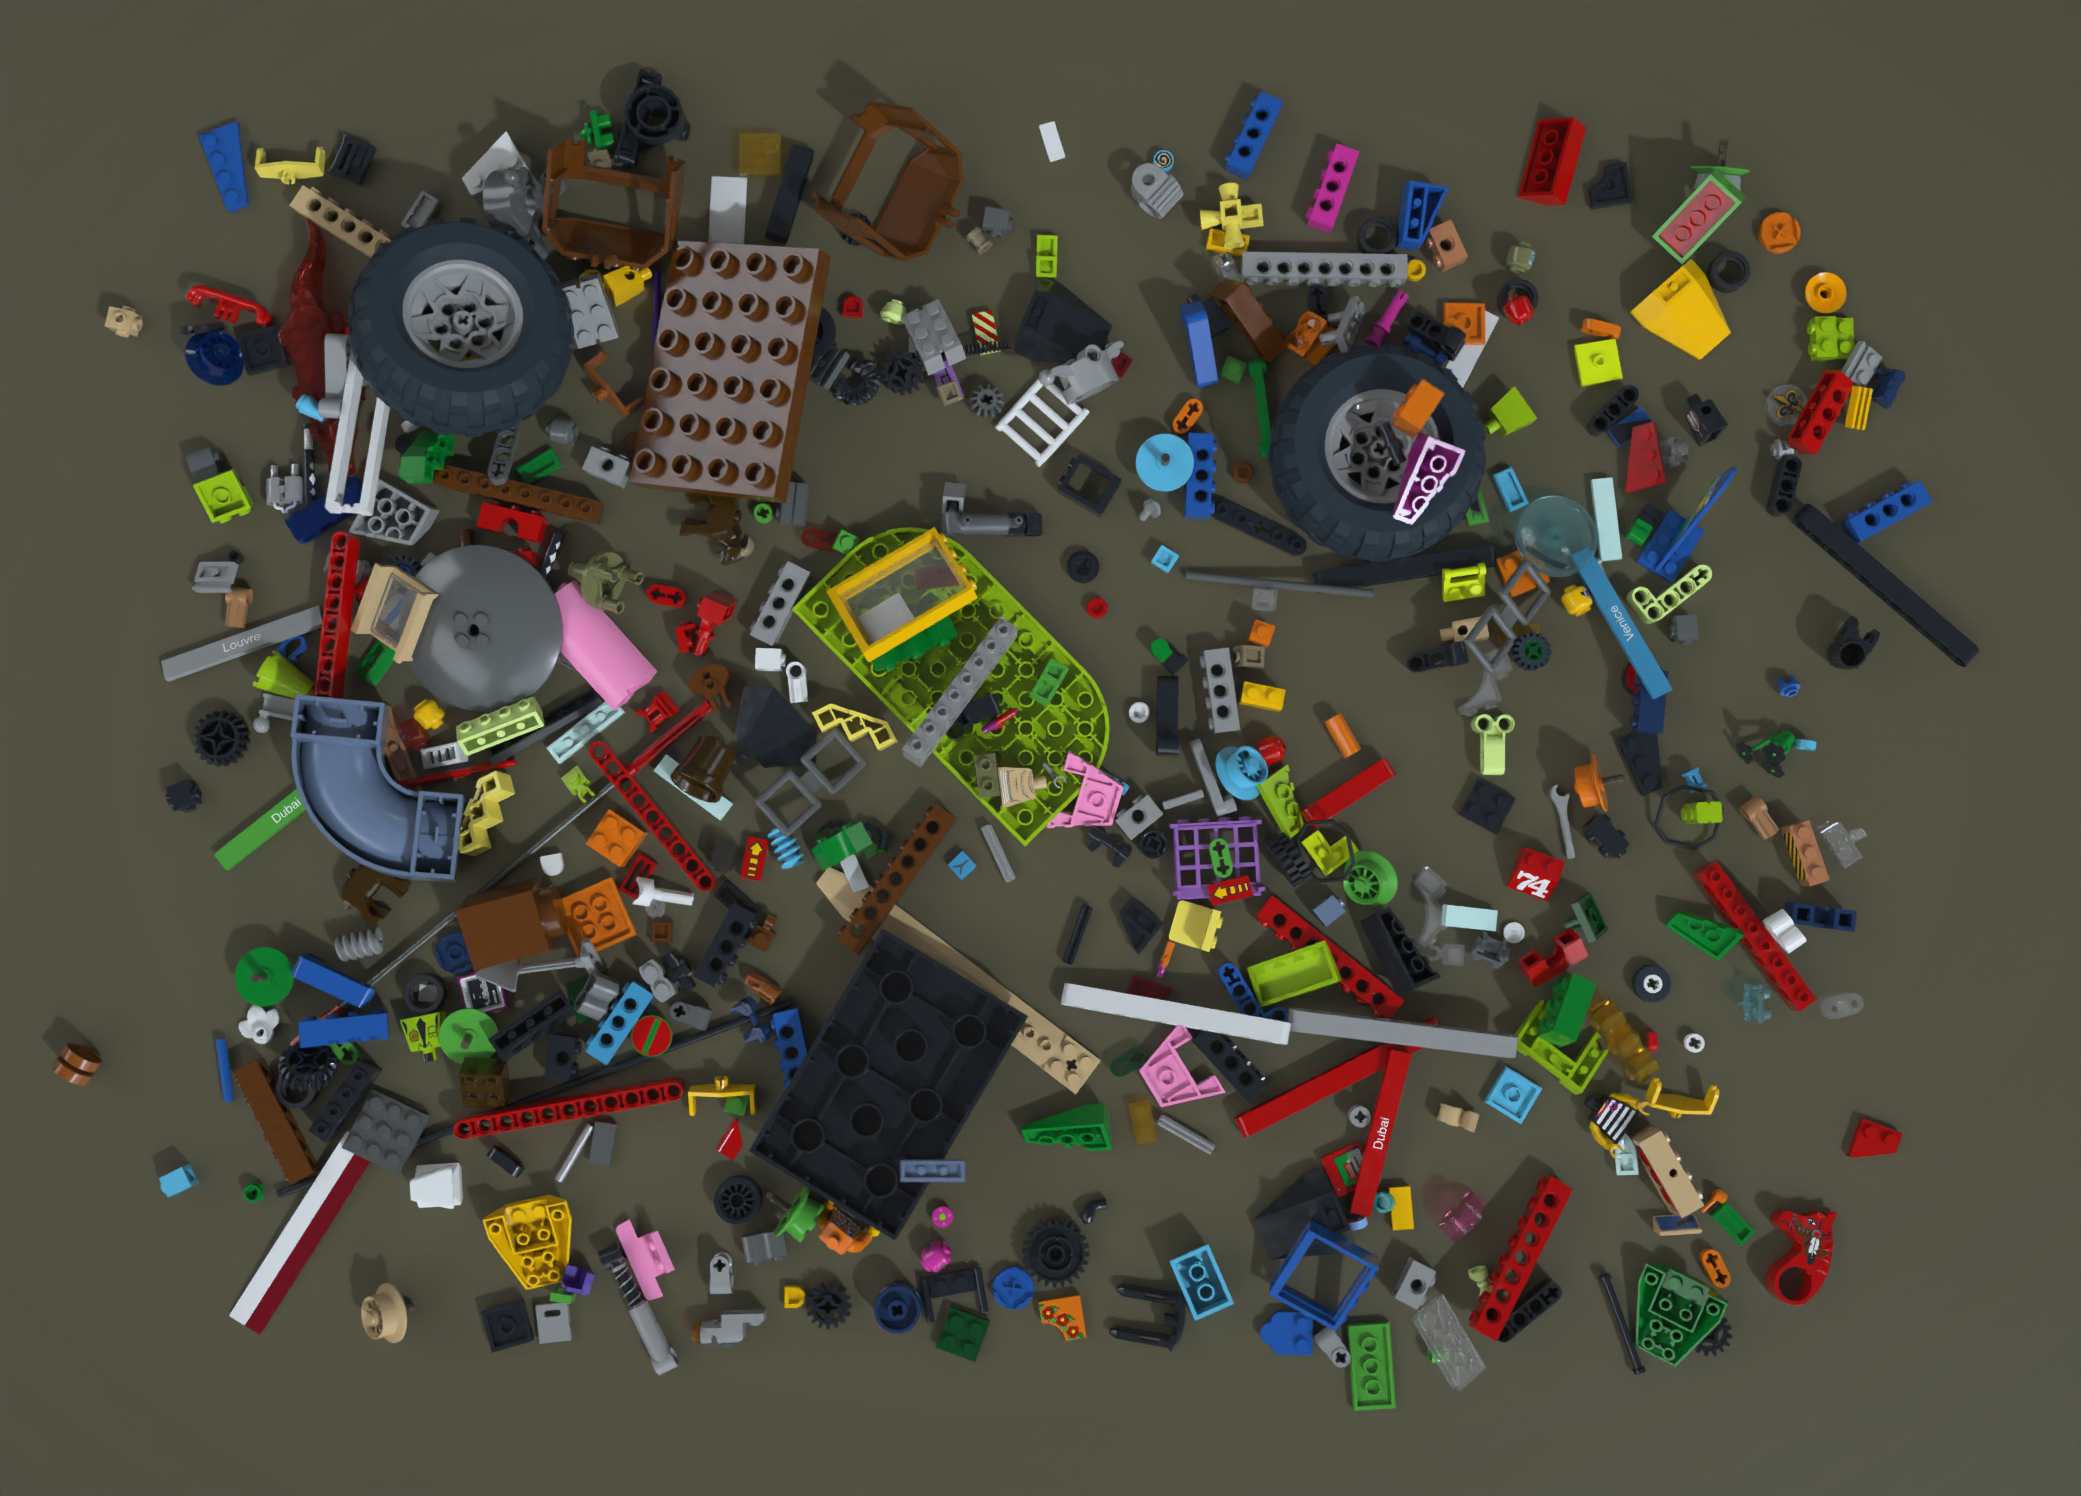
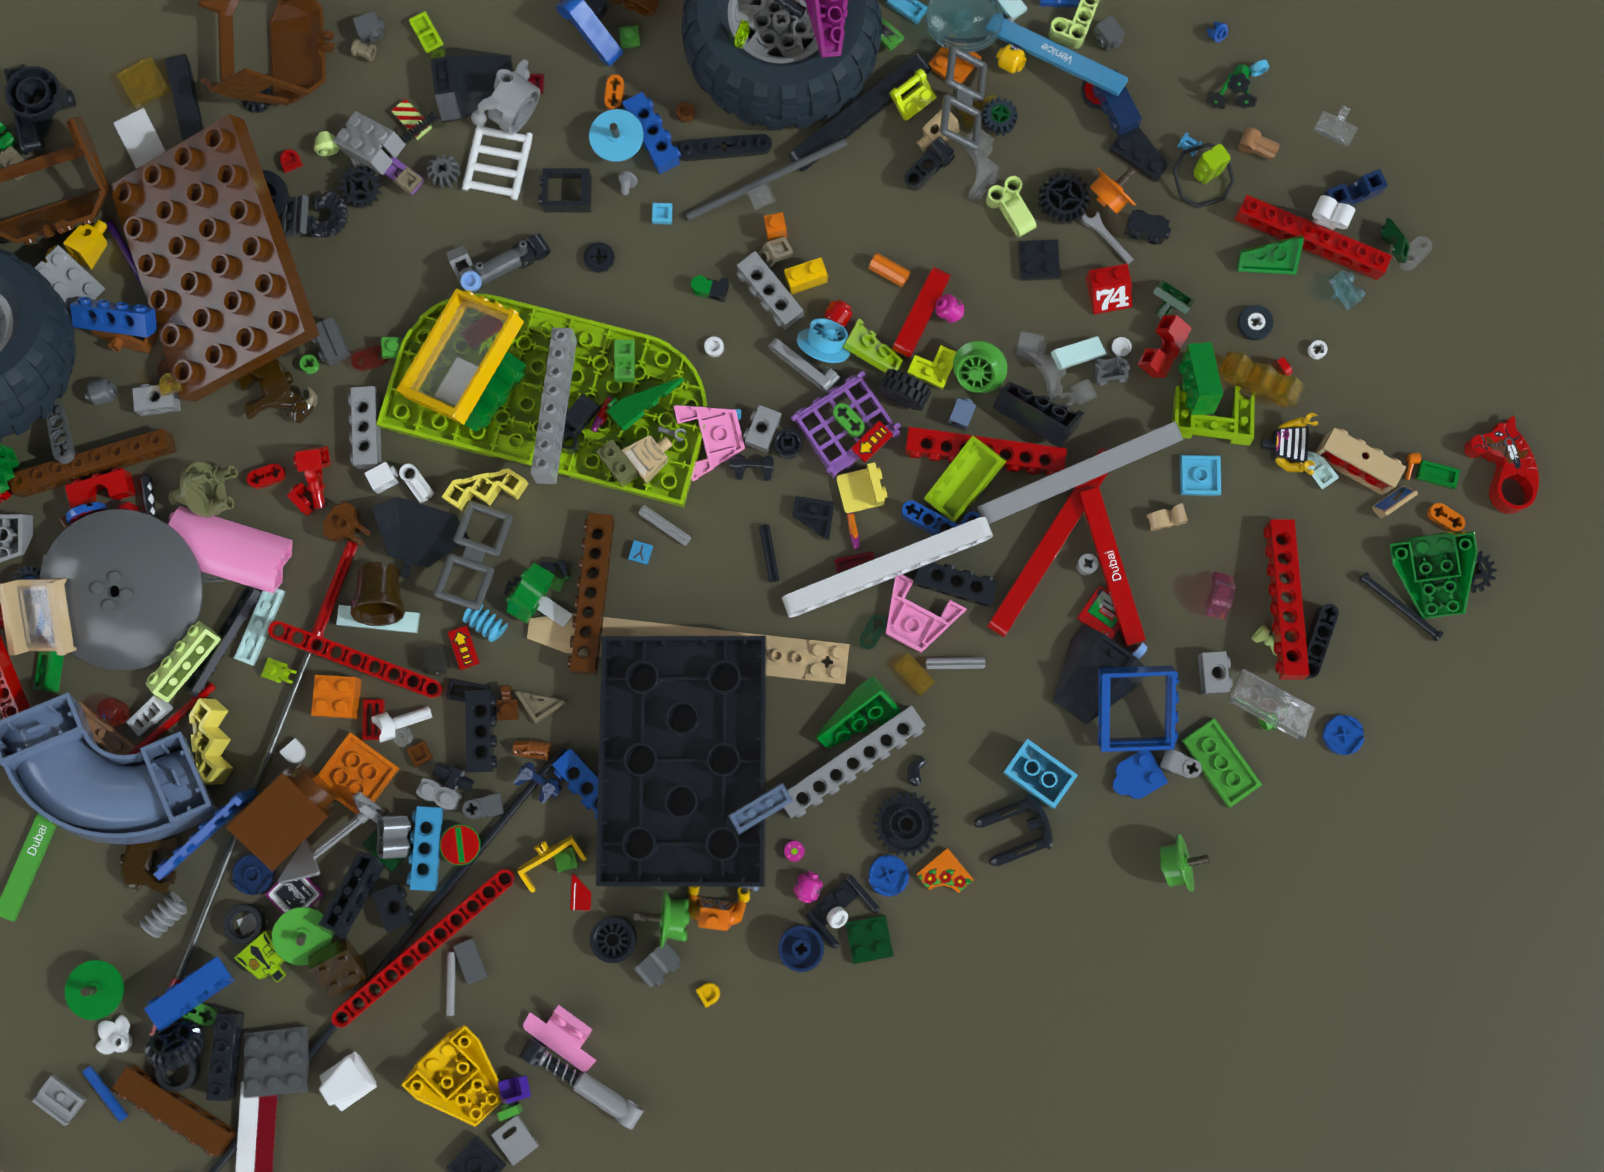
camera: 30 degrees left, 5 degrees down
(182, 1052) = (59, 1100): none -> light grey plate
(315, 973) = (156, 958): blue beam -> none
(429, 714) = (116, 687): yellow head -> none
(439, 895) = (206, 829): none -> blue wing
(487, 539) = (82, 511): none -> blue tile
(505, 1161) = (394, 1025): black beam -> none
(539, 467) = (99, 431): green tile -> none
(610, 373) = (113, 317): none -> blue brick
(625, 463) = (168, 385): none -> clear yellow tile
(664, 705) = (314, 565): red piece -> none
(721, 1277) = (638, 1014): light grey piece -> none
(728, 1330) = (669, 1054): light grey plate -> none
(791, 951) = (539, 706): none -> dark tan tile
(837, 1305) = (737, 974): black gear -> none
(946, 1298) = (837, 917): none -> white tile
(951, 528) = (471, 281): none -> light blue tile
(1028, 732) = (630, 408): none -> green wedge
(1096, 608) = (630, 284): red tile -> none
(1113, 1157) = (908, 717): none -> light grey brick
(1167, 716) = (738, 336): black beam -> none
(1182, 799) = (790, 394): light grey tile -> none
(1257, 370) = (649, 26): green piece -> none
(1275, 1436) = (1178, 865): none -> bright green piece
(1331, 452) = (741, 34): none -> clear neon green tile
(1338, 879) = (949, 350): black piece -> none
(1376, 805) = (949, 308): none -> dark pink head
(1384, 1202) = (1149, 622): teal tile -> none
(1402, 1211) = (1166, 619): yellow tile -> none
(1497, 1406) = (1343, 735): none -> blue tile
(1550, 768) = (1047, 191): none -> black gear
(1681, 1104) = (1336, 404): yellow piece -> none
(1805, 853) = (1311, 150): nougat brick -> none
(1831, 977) = (1393, 236): none -> dark green slope
(1873, 1140) = (1505, 343): red wing -> none

